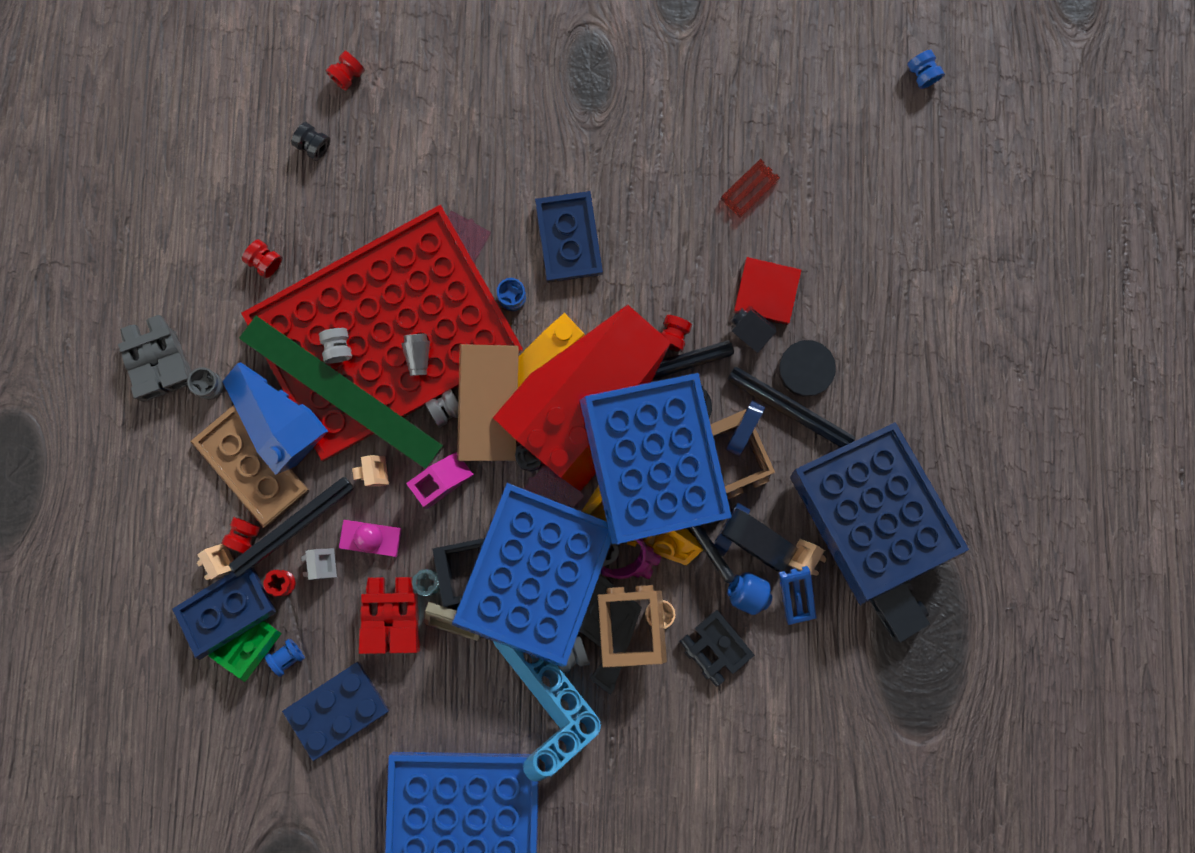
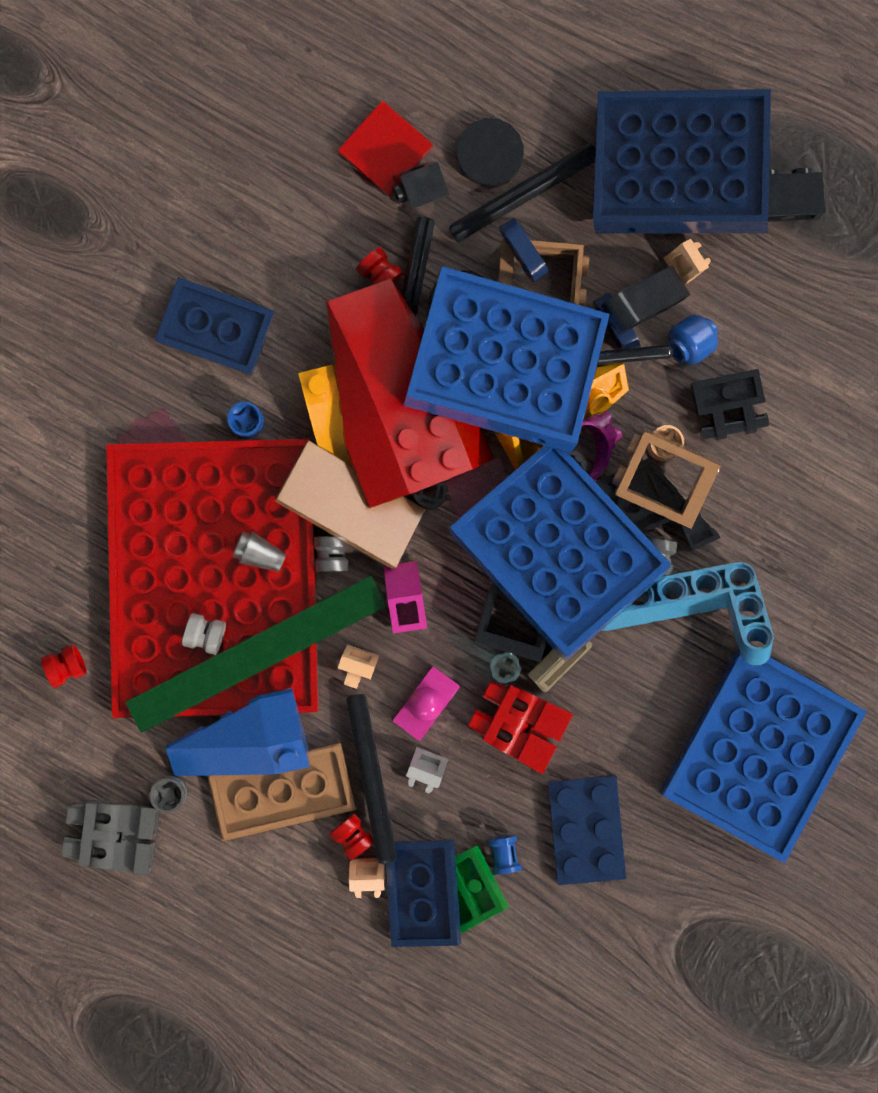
camera: 60 degrees left, 5 degrees up
(272, 578) = (432, 815): red bush -> none
(766, 172) = (257, 79): clear red tile -> none
(794, 577) = (702, 285): blue tile -> none

